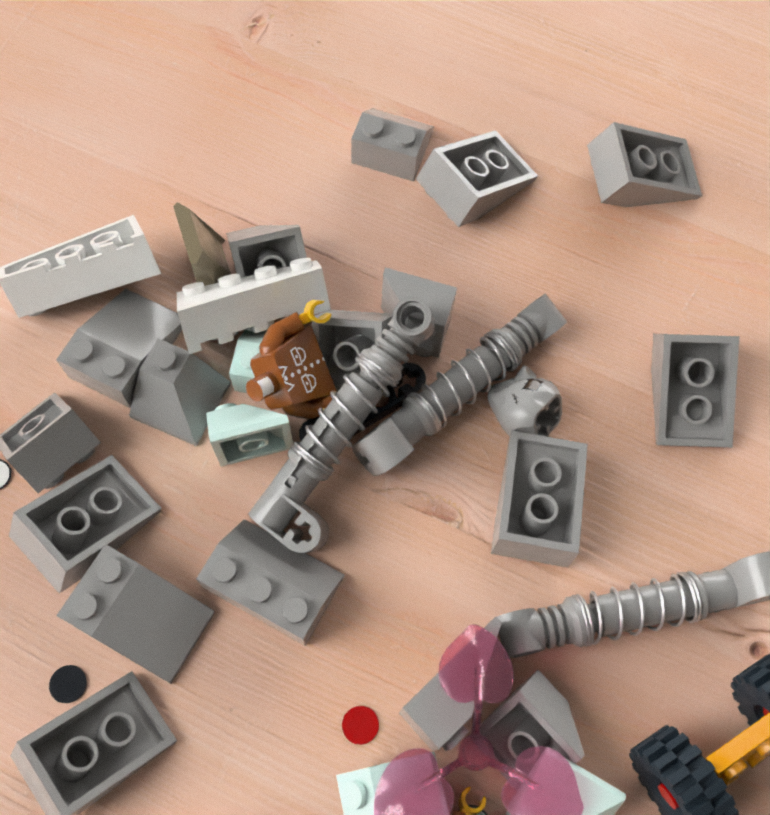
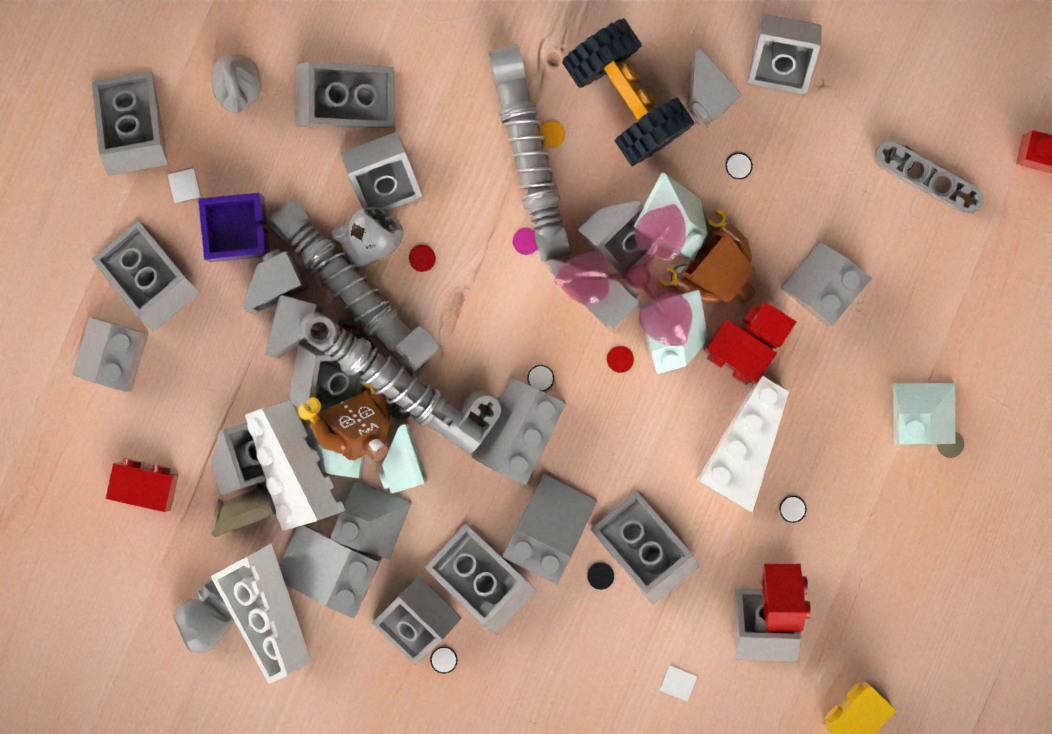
camera: 85 degrees left, 20 degrees up
(82, 204) = (203, 620): none -> light grey piece
(245, 161) = (142, 486): none -> red brick
(341, 614) = (540, 377): none -> white sticker
(479, 296) = (273, 278): none -> light grey slope
(493, 470) = (422, 258): none -> red sticker
(519, 598) = (524, 241): none -> dark pink sticker
(534, 258) = (233, 227): none -> dark purple piece
(541, 500) = (447, 226): light grey slope -> none
(577, 222) = (184, 185): none -> white sticker
(606, 420) = (382, 173): none -> light grey slope
(661, 644) = (553, 133): none -> light orange sticker
(701, 271) = (235, 82): none -> light grey piece

